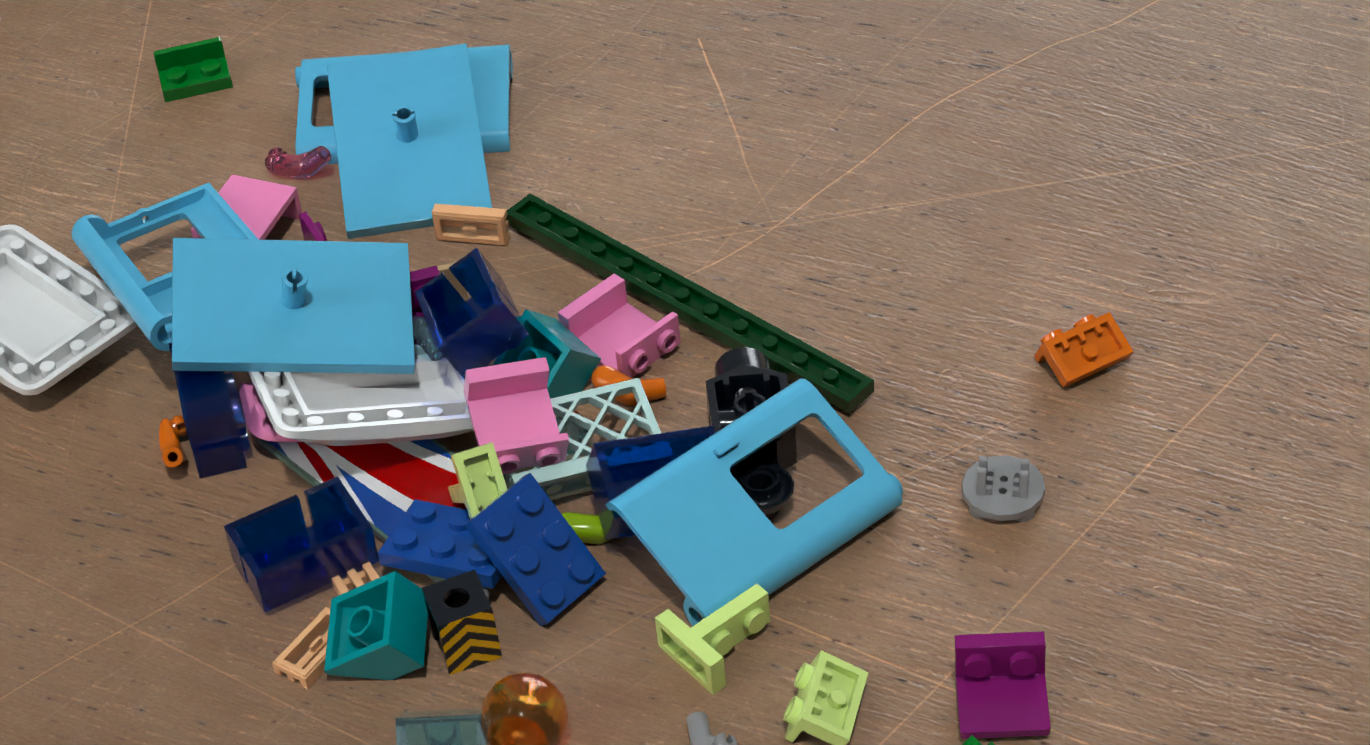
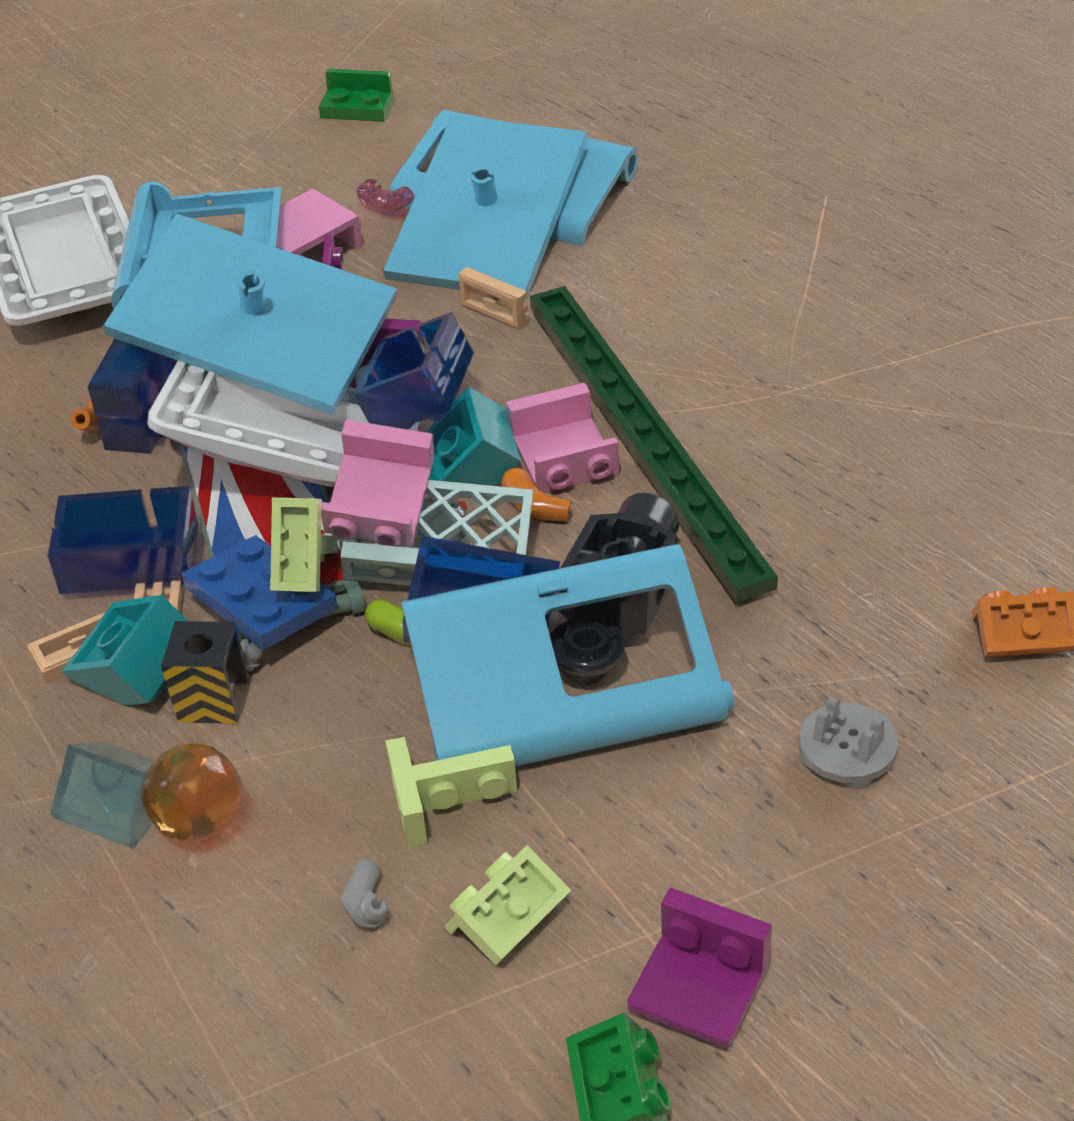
camera: 25 degrees right, 0 degrees up
(535, 549) = (318, 624): blue plate -> none

